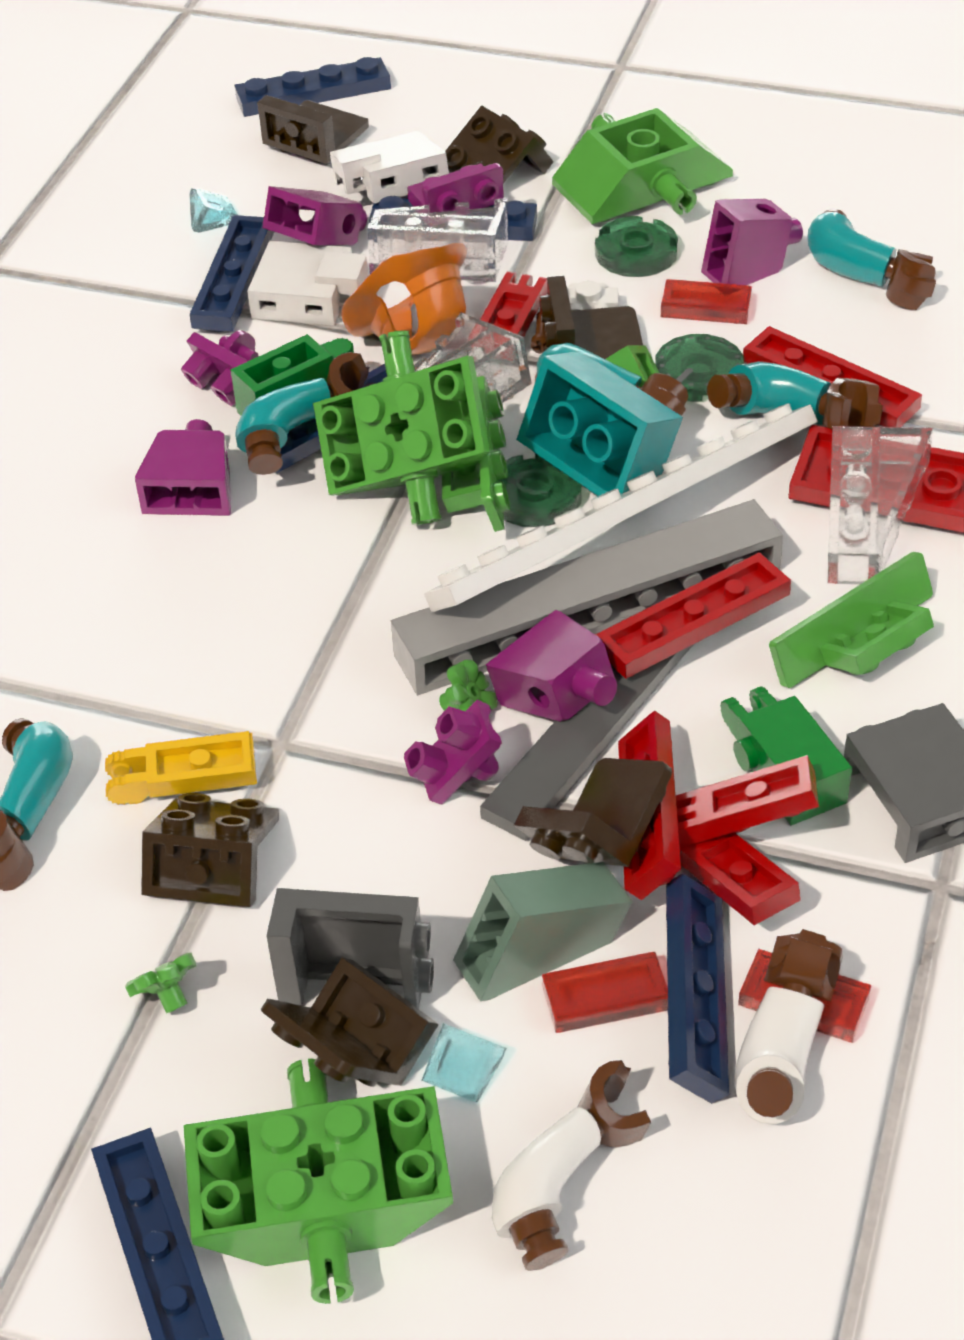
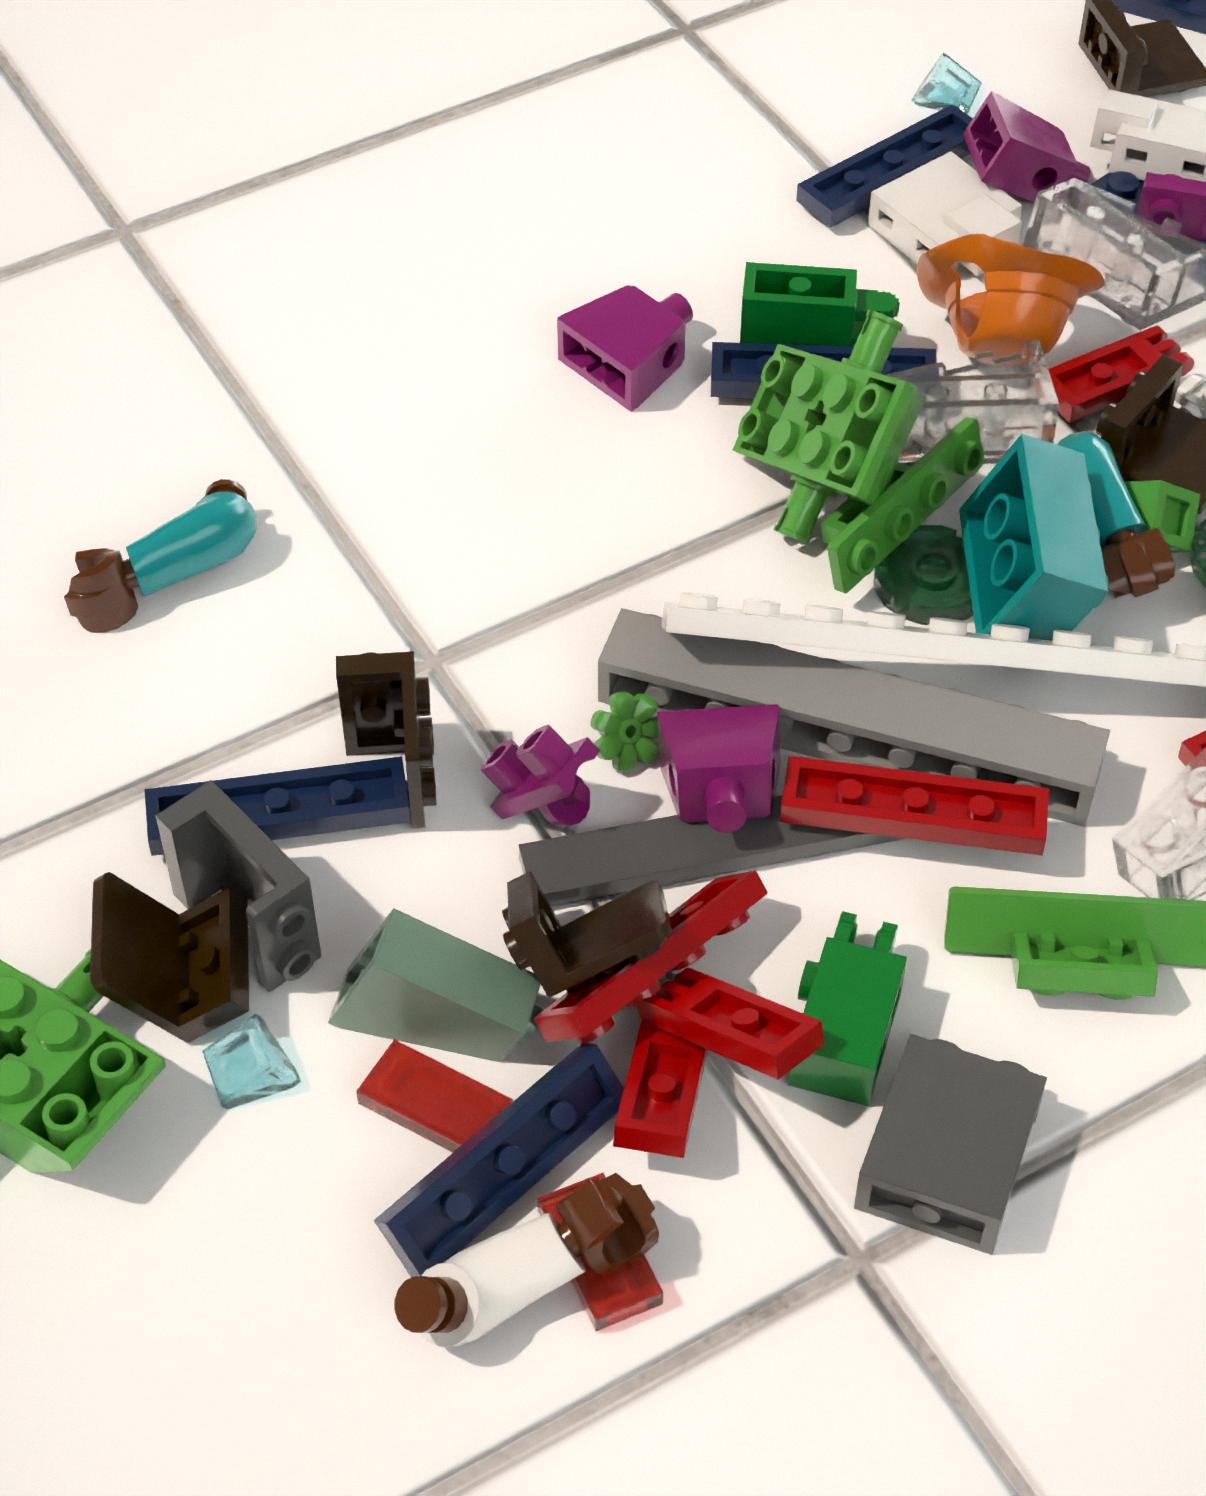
camera: 40 degrees right, 5 degrees up
(164, 982) = (97, 801): bright green plant -> none
(181, 767) = (318, 617): yellow hinge -> none
(205, 850) = (249, 699): dark brown bracket -> none
(217, 359) = (764, 245): magenta hips -> none
(270, 417) = (736, 333): piece -> none
(325, 863) = (304, 799): none -> dark blue plate
(326, 772) = (382, 715): none -> dark brown bracket
(531, 1184) = (164, 1210): piece -> none

